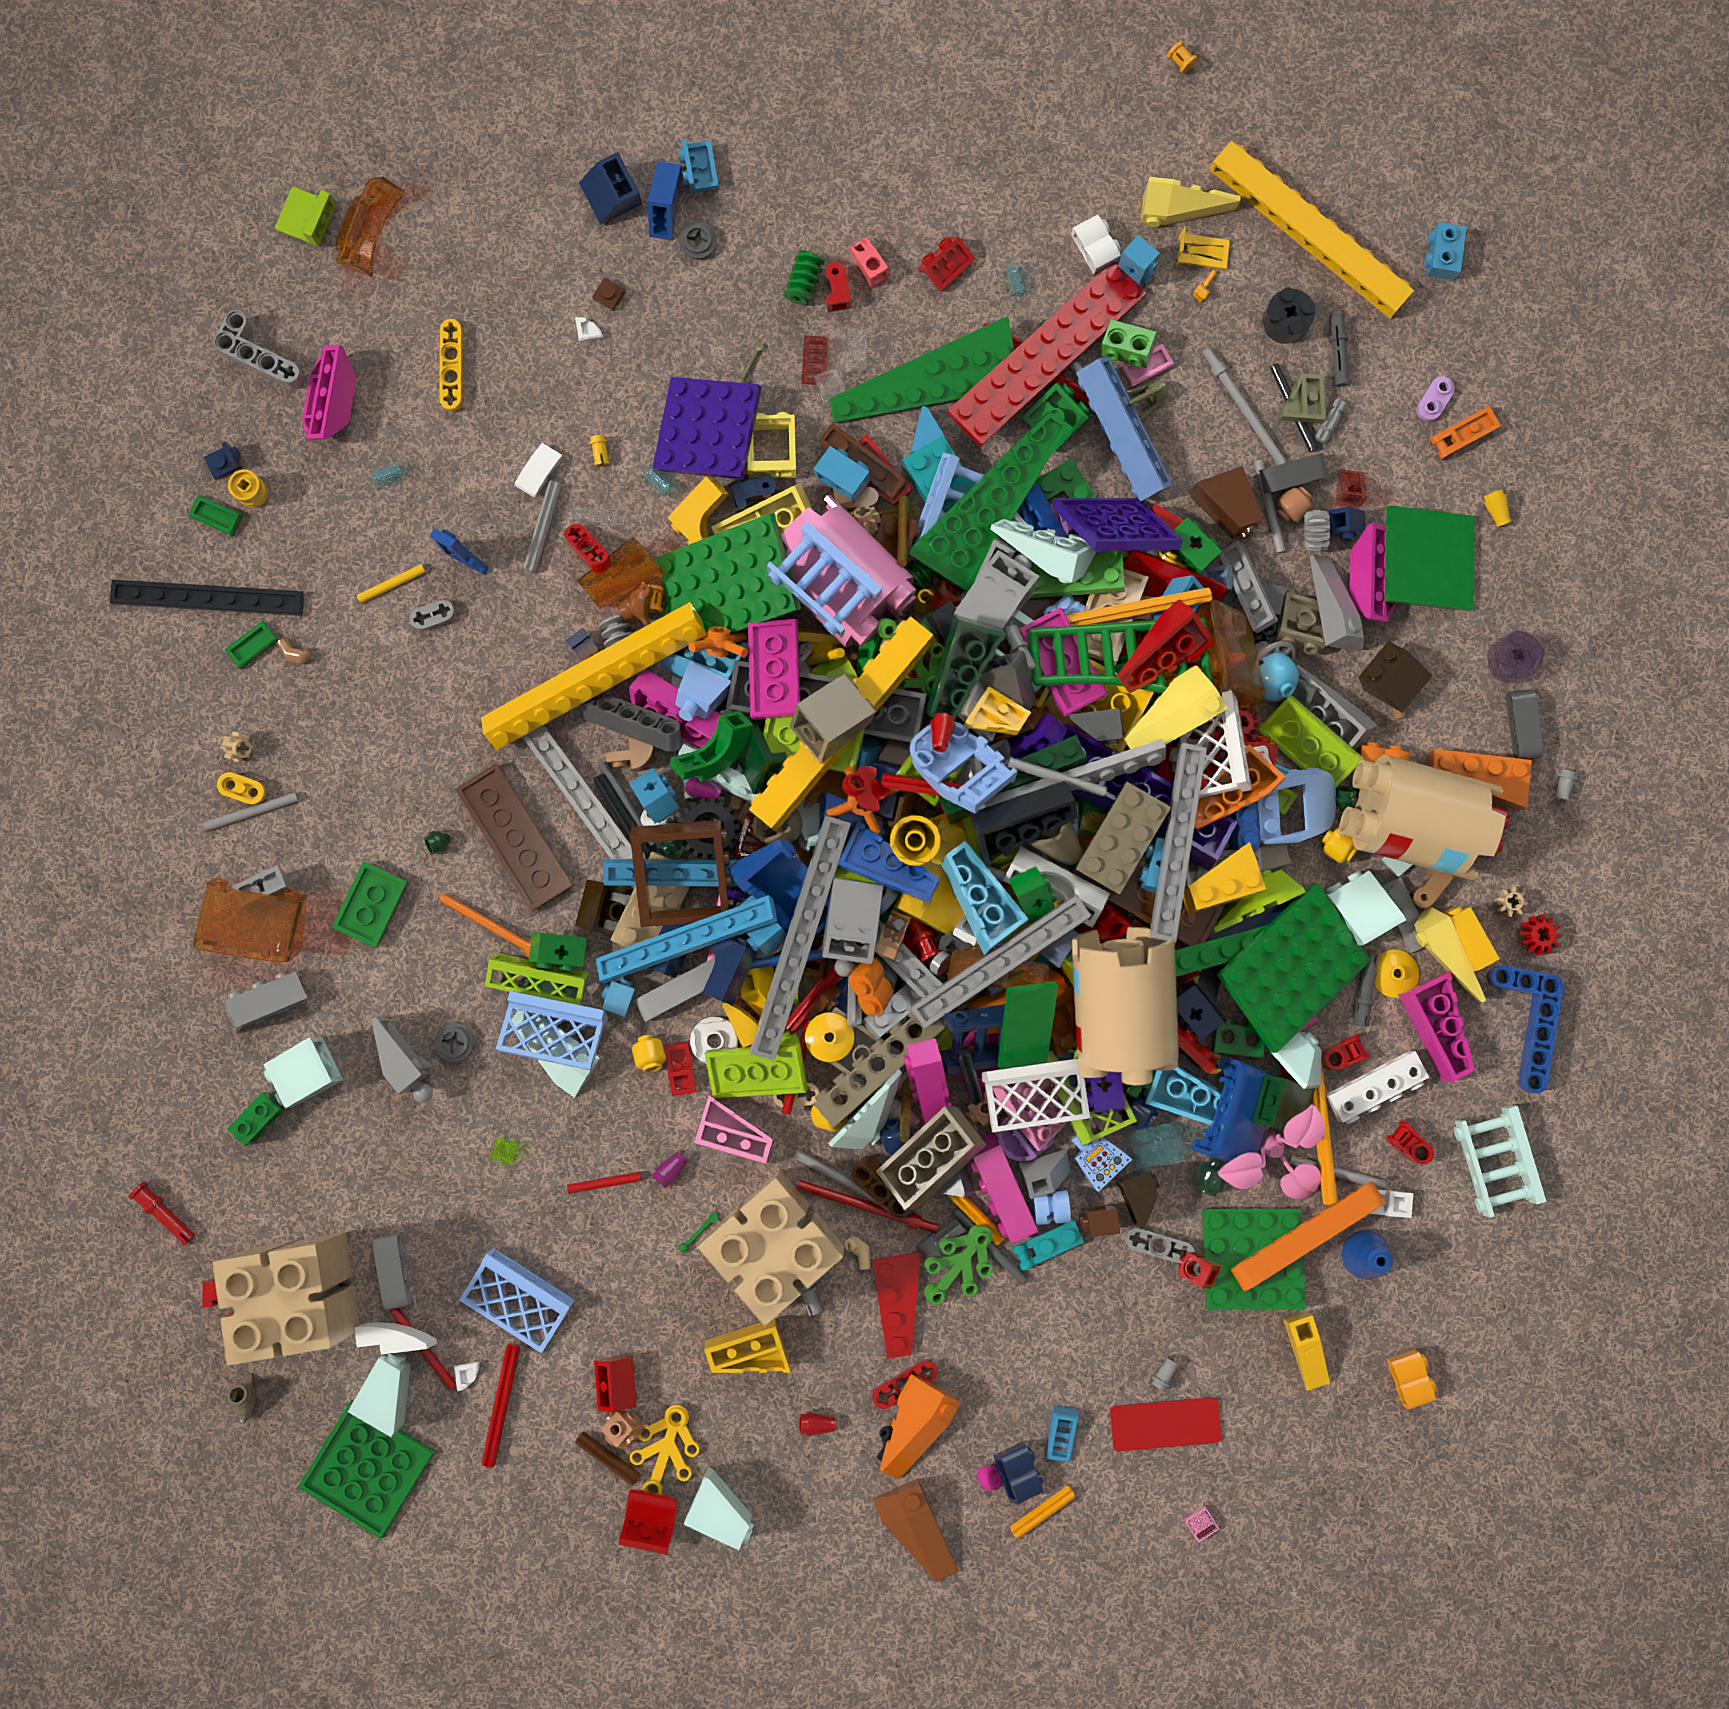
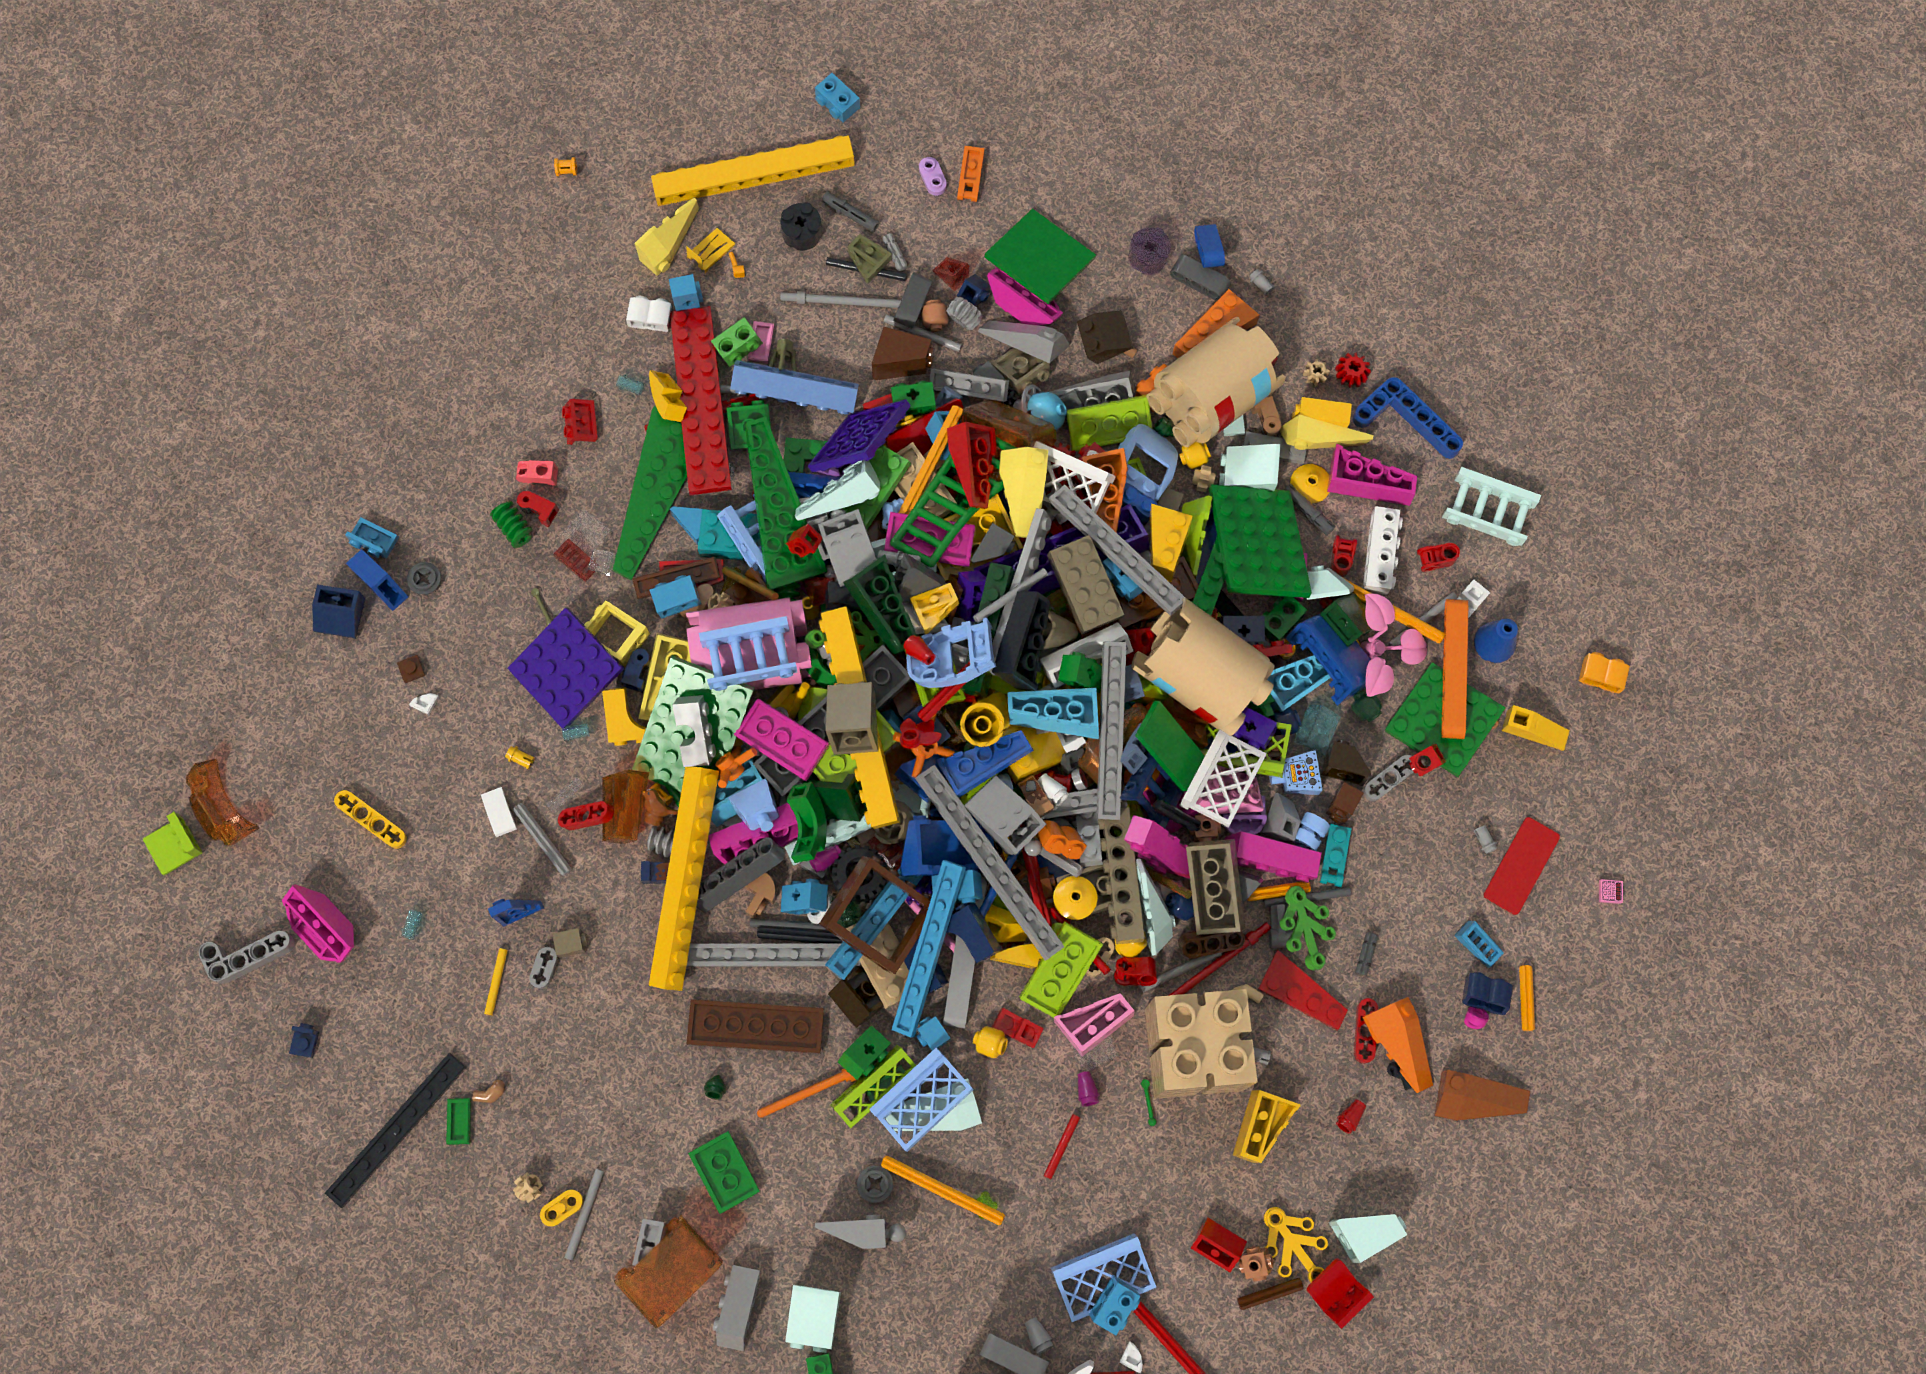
camera: 55 degrees left, 10 degrees down
(215, 515) = (339, 1077): green tile -> none
(248, 488) = (341, 1035): yellow wheel -> none
(425, 1280) = (1038, 1336): none -> light grey cone
(469, 621) = (569, 942): none -> dark tan brick
(489, 1106) = (943, 1190): none -> light orange axle
(497, 1328) = (1115, 1305): none -> dark azure brick
(710, 1026) = (1002, 983): white tile -> none
(736, 573) = (693, 713): none -> arch
(808, 1140) = (1137, 971): none -> red piece
(911, 946) = (1053, 790): none -> white cone
(969, 549) = (800, 545): none -> red brick
(976, 1336) = (1366, 953): none -> dark grey axle
(993, 997) = (1133, 753): none -> sand blue slope
(1027, 320) = (667, 396): none -> yellow slope
(1322, 870) = (1203, 478): none -> tan gear
(1498, 507) = (1038, 189): yellow cone -> none
(1563, 710) = (1209, 245): none -> blue beam

